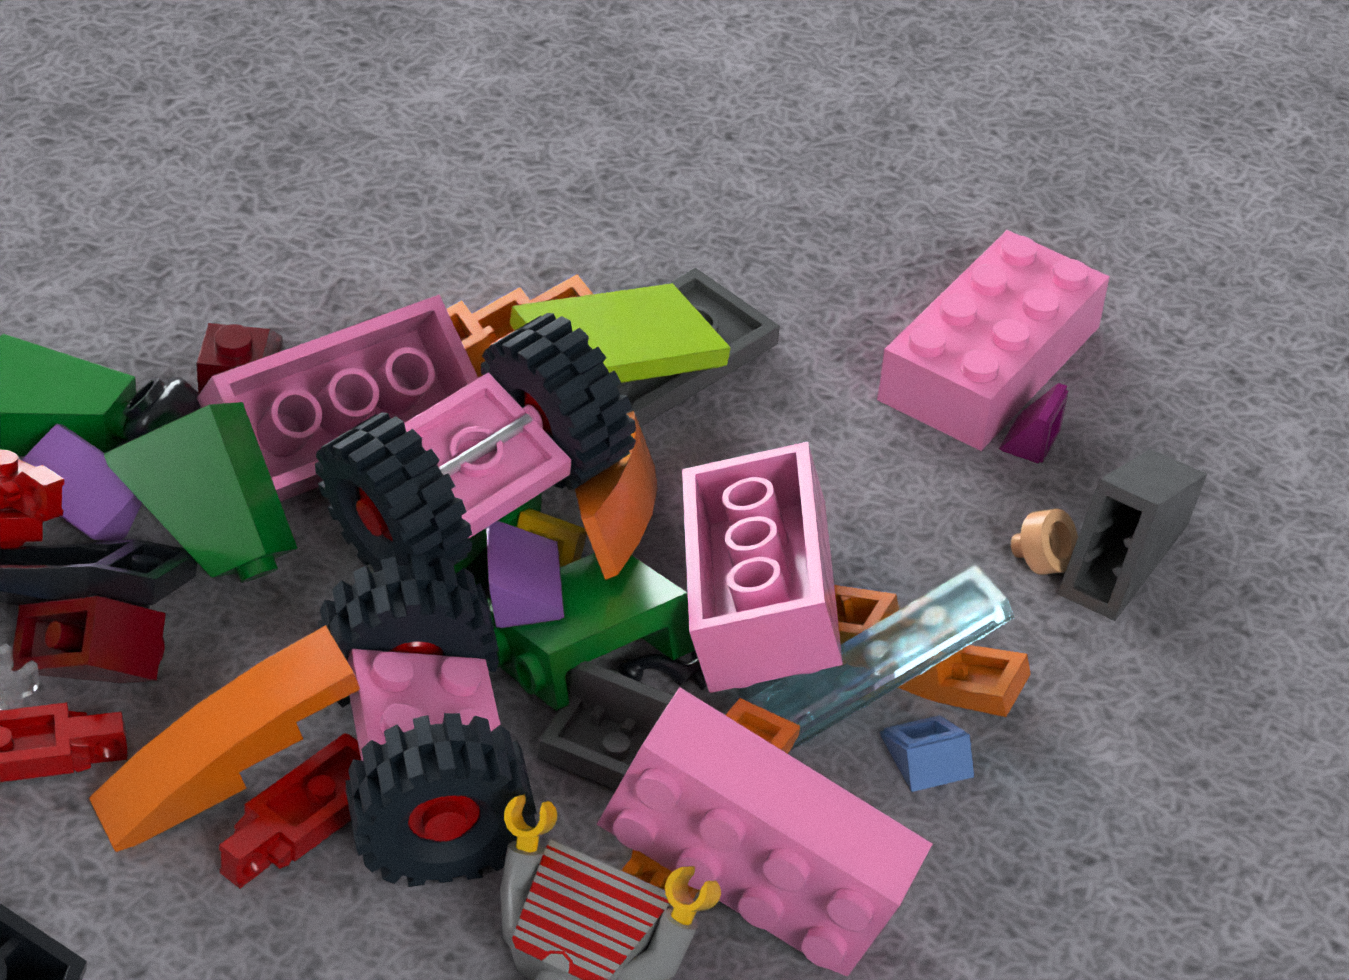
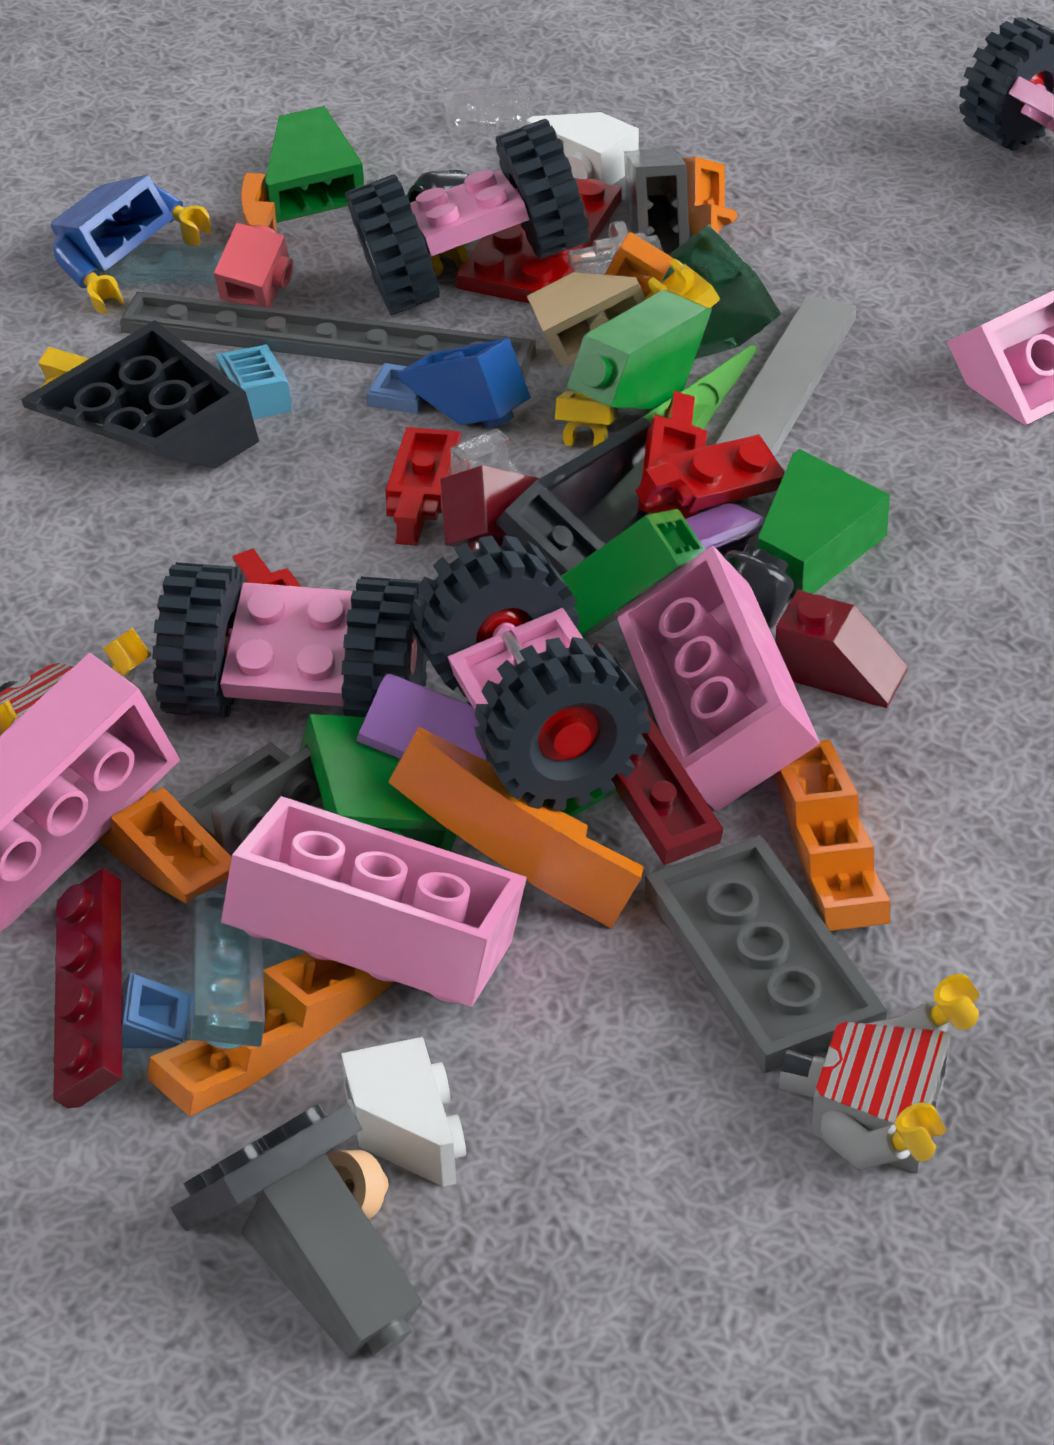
camera: 115 degrees right, 0 degrees up
(234, 728) = (338, 551): orange slope -> none
(638, 330) = (750, 887): lime tile -> none
(779, 260) = (884, 1080): none -> torso
(946, 526) = (402, 1109): none -> white slope
(962, 775) = (88, 990): none -> dark red plate
(992, 339) = (685, 1246): bright pink brick -> none
(1037, 426) = (534, 1252): magenta slope -> none
(1108, 546) = (263, 1163): none -> black plate

